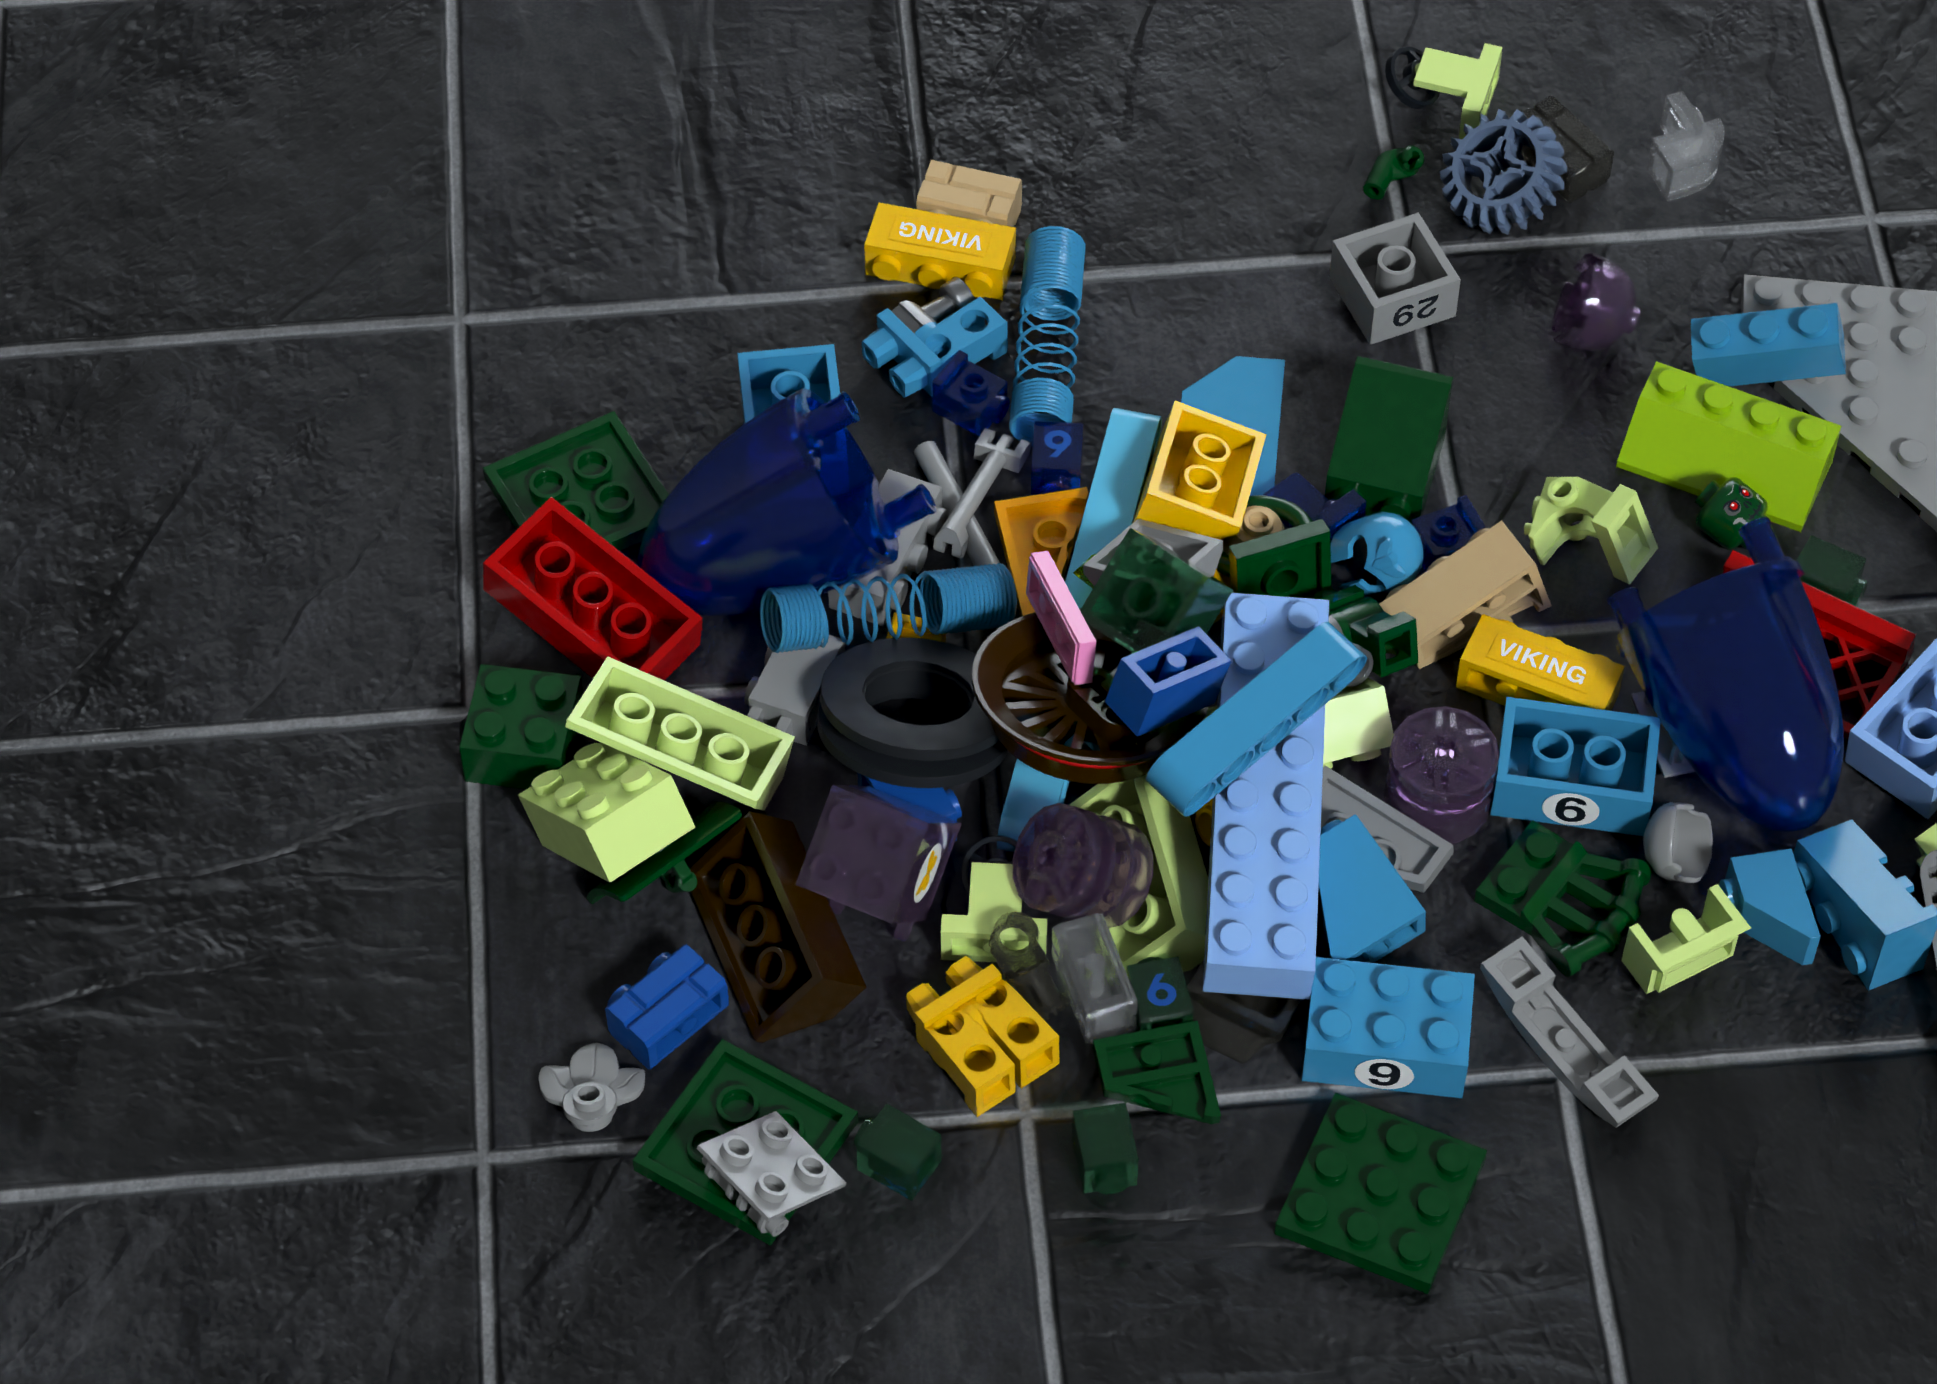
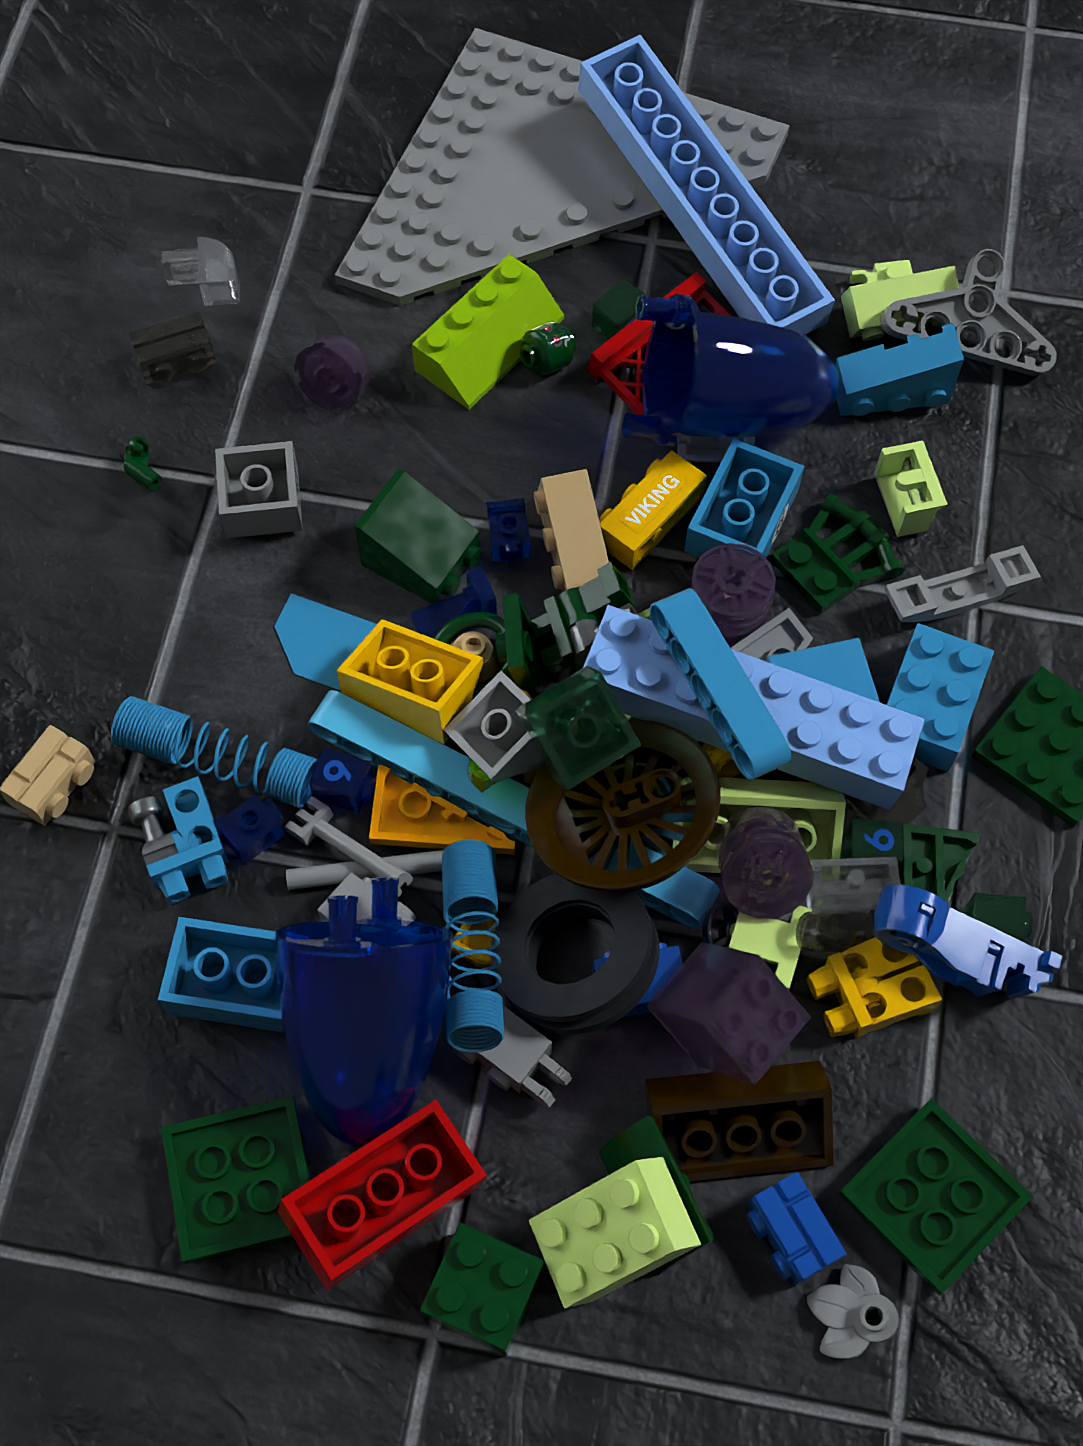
camera: 75 degrees left, 10 degrees up
(683, 733) = (554, 1152): yellowish green slope -> none
(768, 1170) = (986, 1179): light grey hinge -> none
(897, 1151) = (970, 1076): clear green brick -> none
(936, 247) = (89, 812): yellow brick -> none
(1040, 1086) = (959, 945): none -> blue piece
(1061, 618) = (558, 804): bright pink tile -> none
(1167, 681) = (665, 737): blue brick -> none
(1392, 550) = (521, 569): dark azure helmet -> none
(1449, 74) = (75, 392): yellowish green piece -> none
(1517, 191) = (200, 372): sand blue gear -> none
(1606, 515) = (541, 417): yellowish green tile -> none
(1678, 842) = (819, 471): light grey hair -> none
(1769, 345) = (419, 274): dark azure brick -> none
(1773, 903) = (880, 426): dark azure slope -> none

